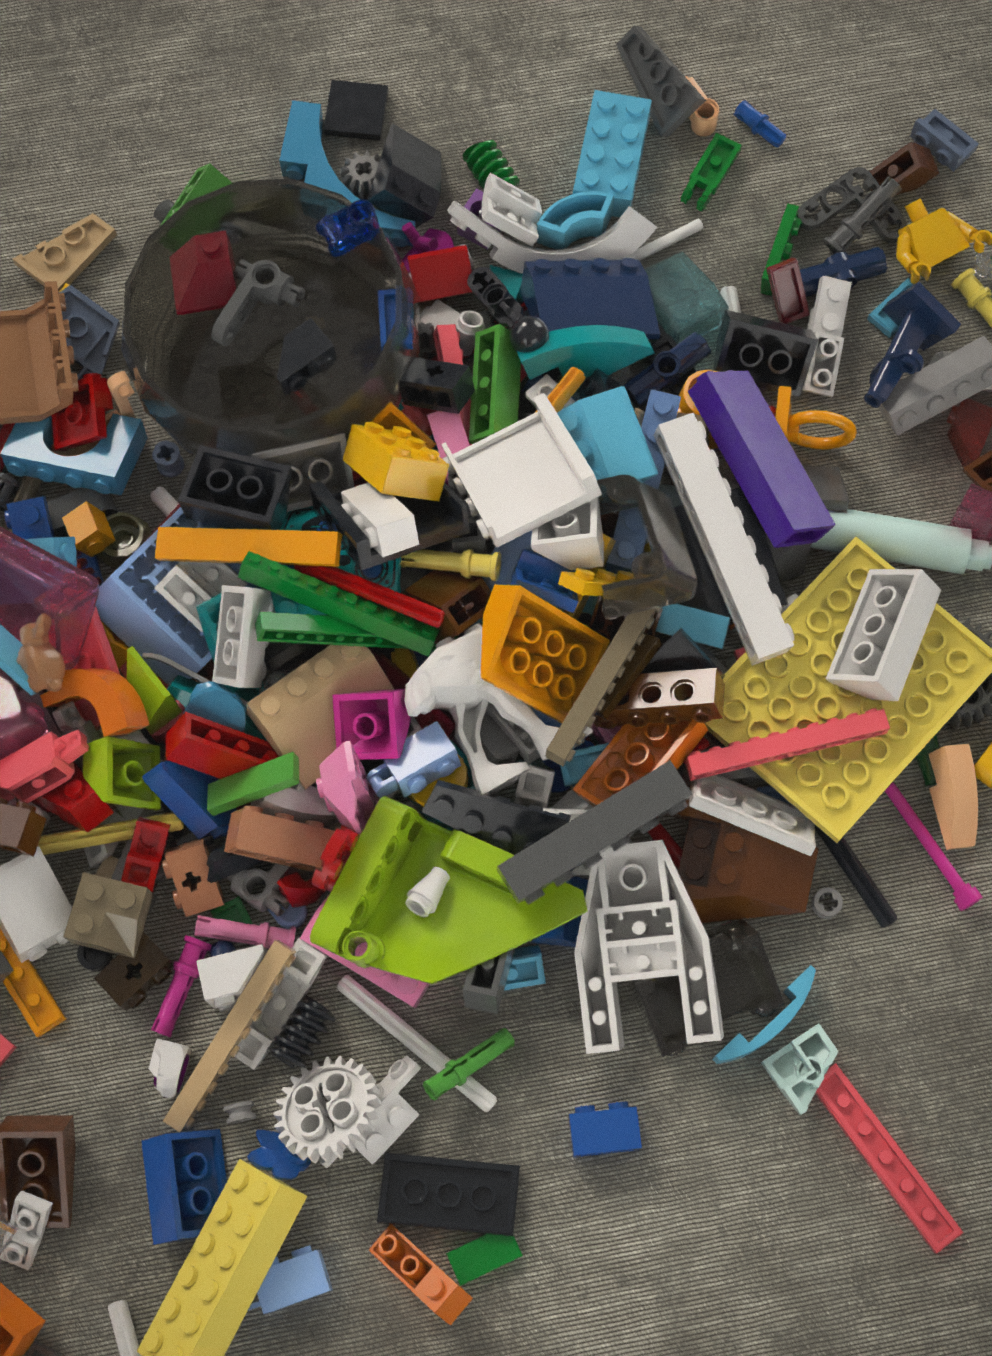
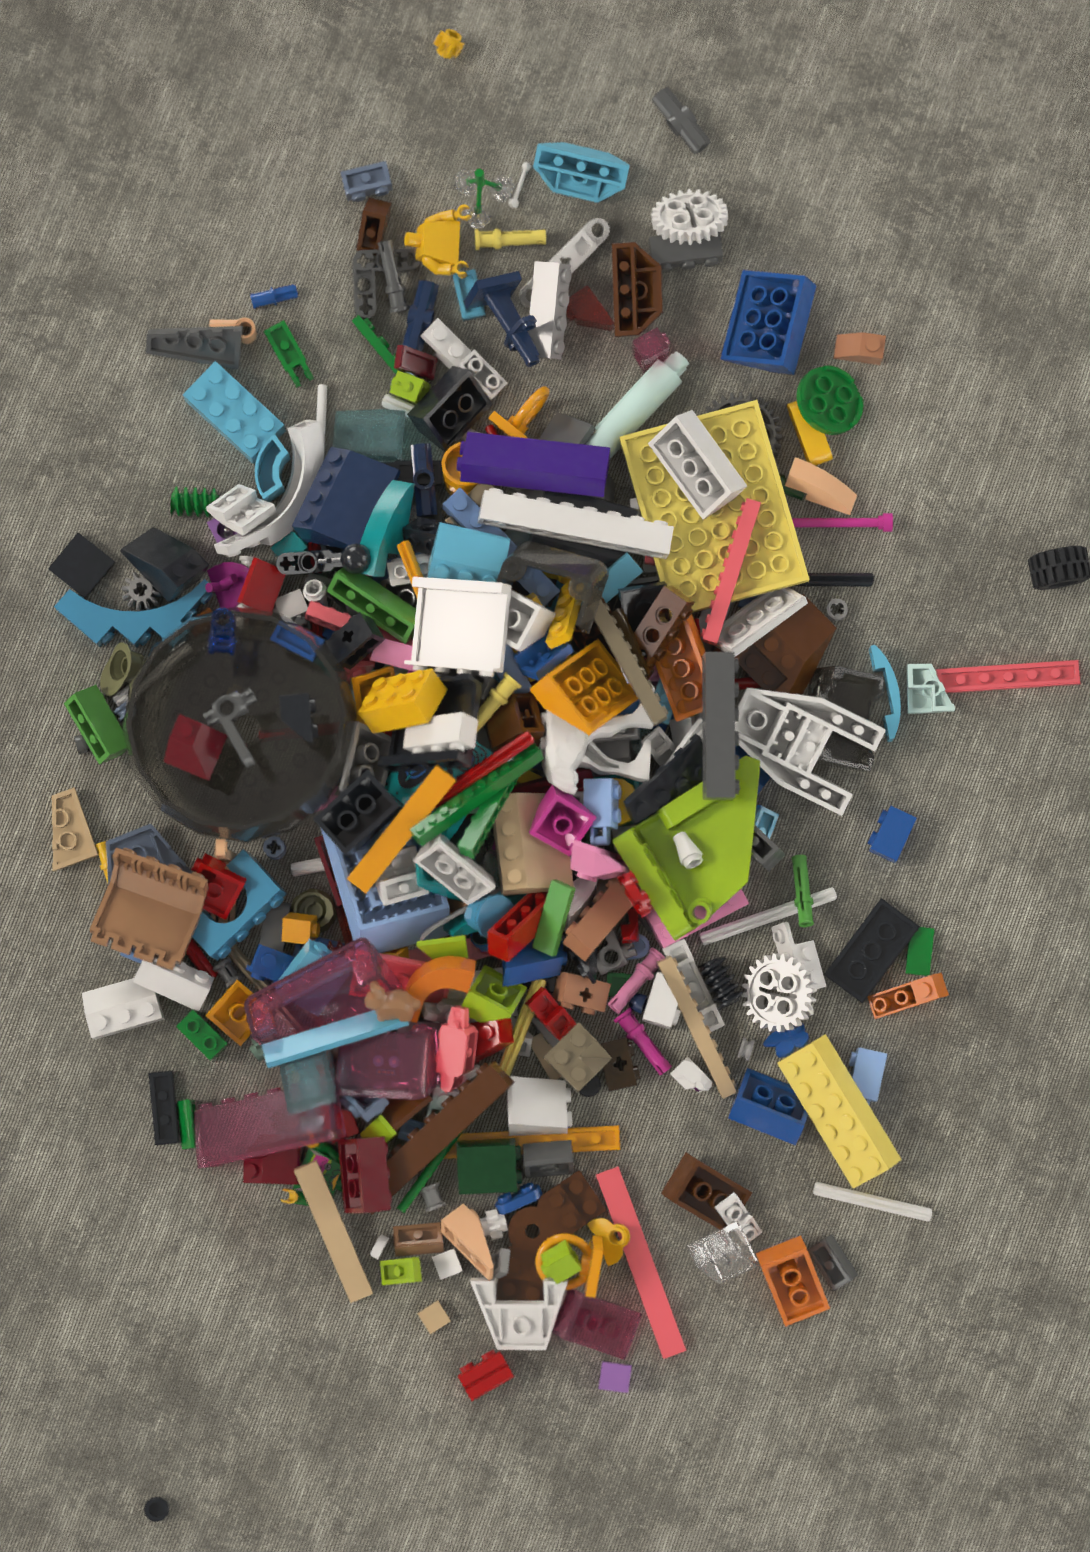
camera: 60 degrees left, 10 degrees up
(757, 296) = (409, 387): none -> lime head

